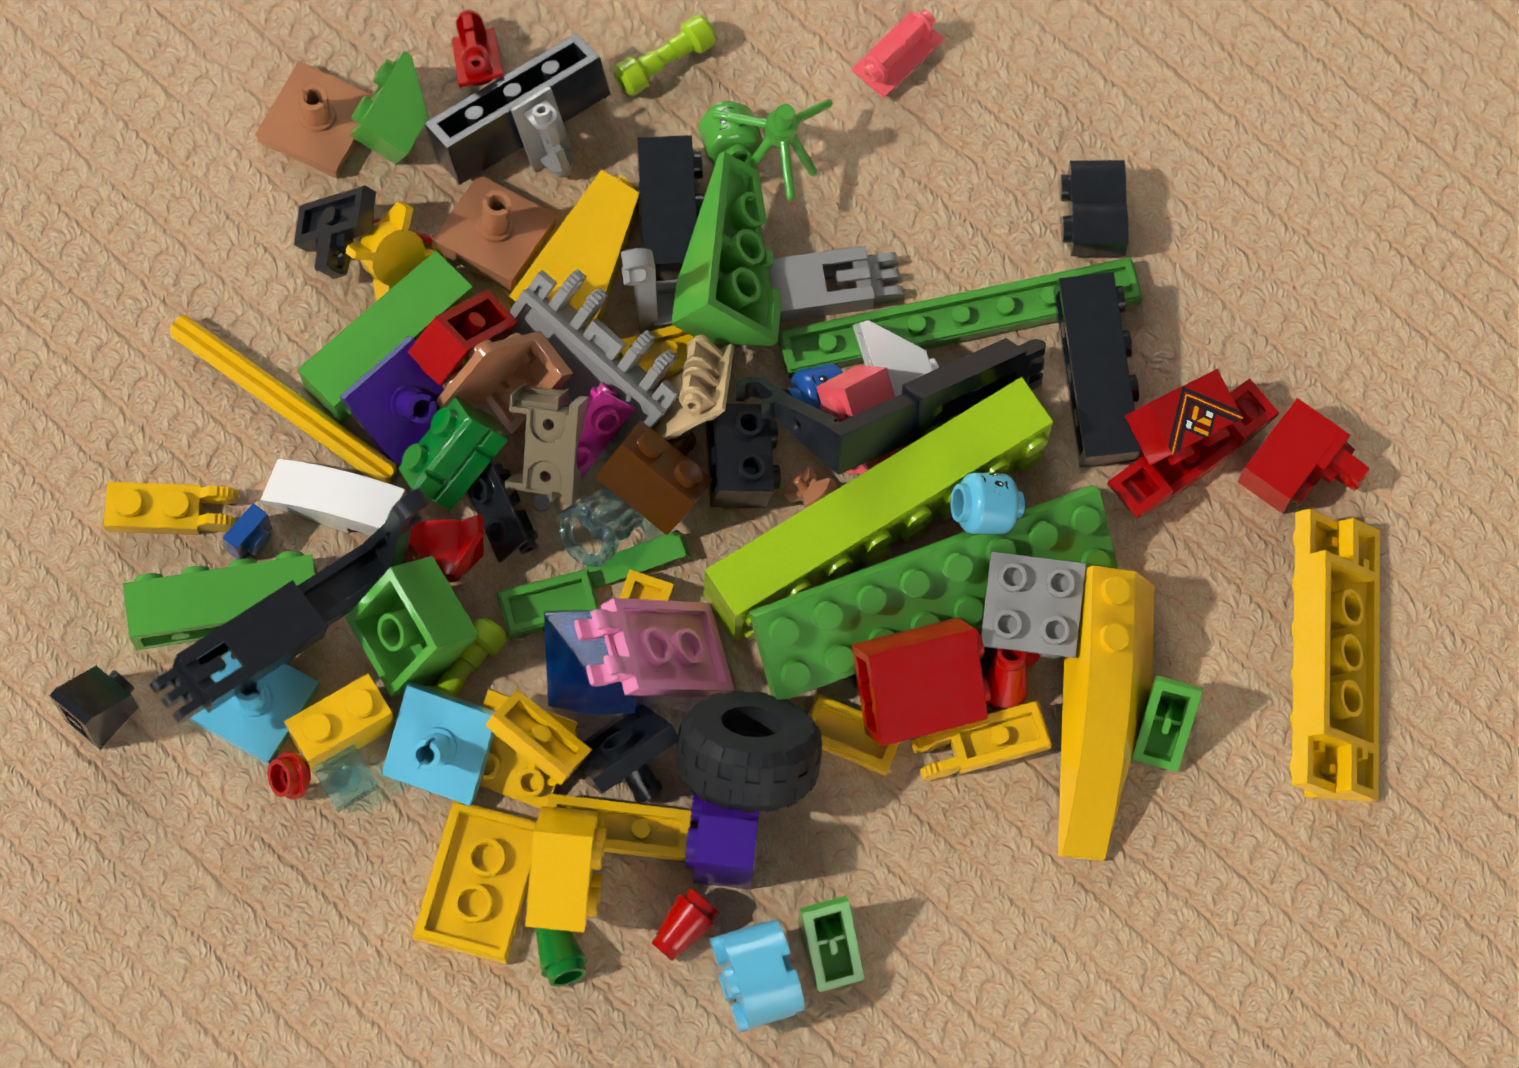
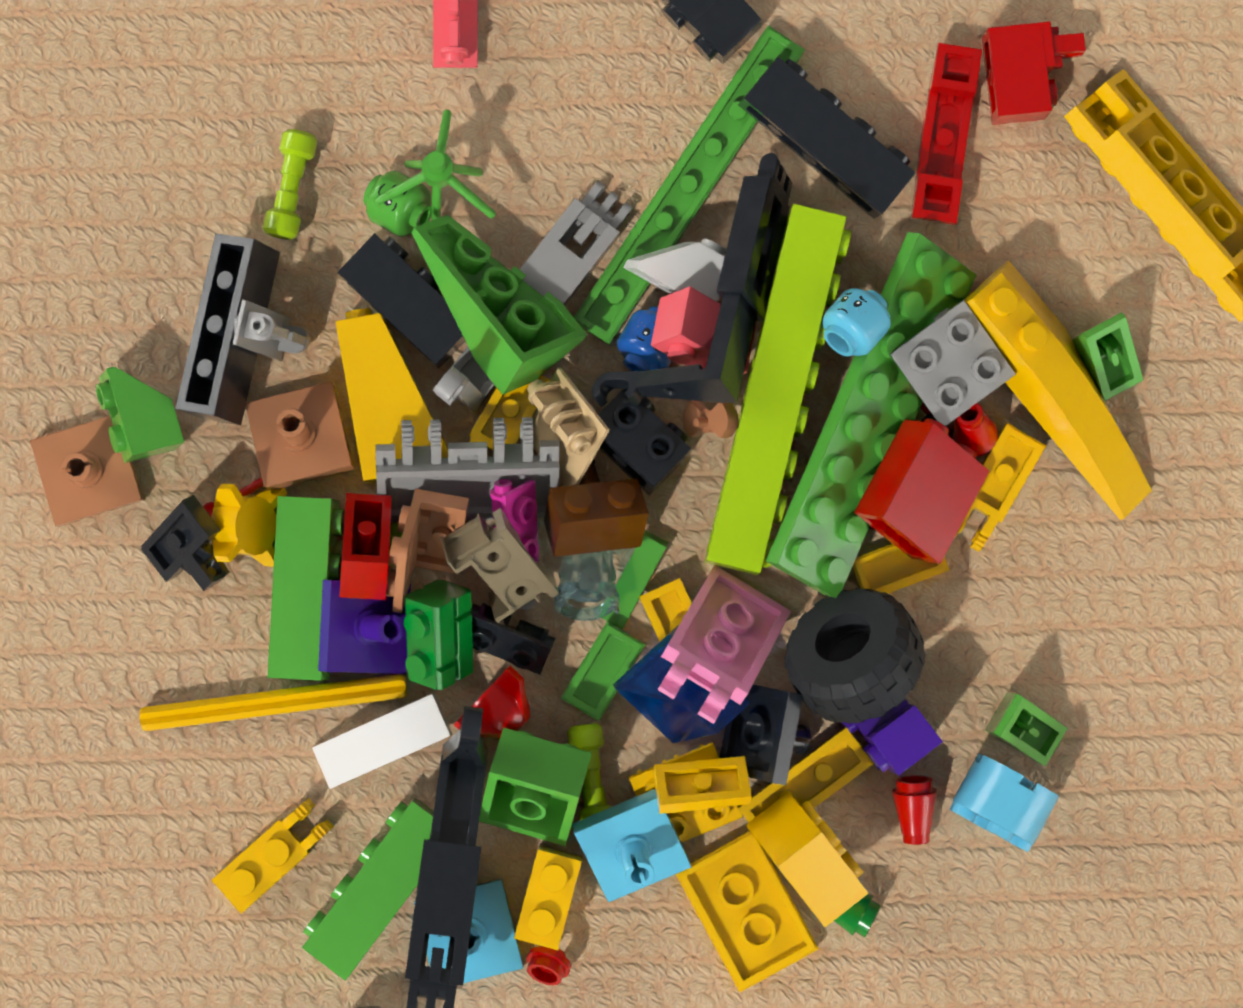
camera: 40 degrees left, 15 degrees up
(249, 533) = (350, 823): blue plate -> none
(345, 778) = (587, 929): clear light blue plate -> none
(475, 51) = (153, 314): red hinge -> none
(1184, 417) = (926, 120): red brick -> none

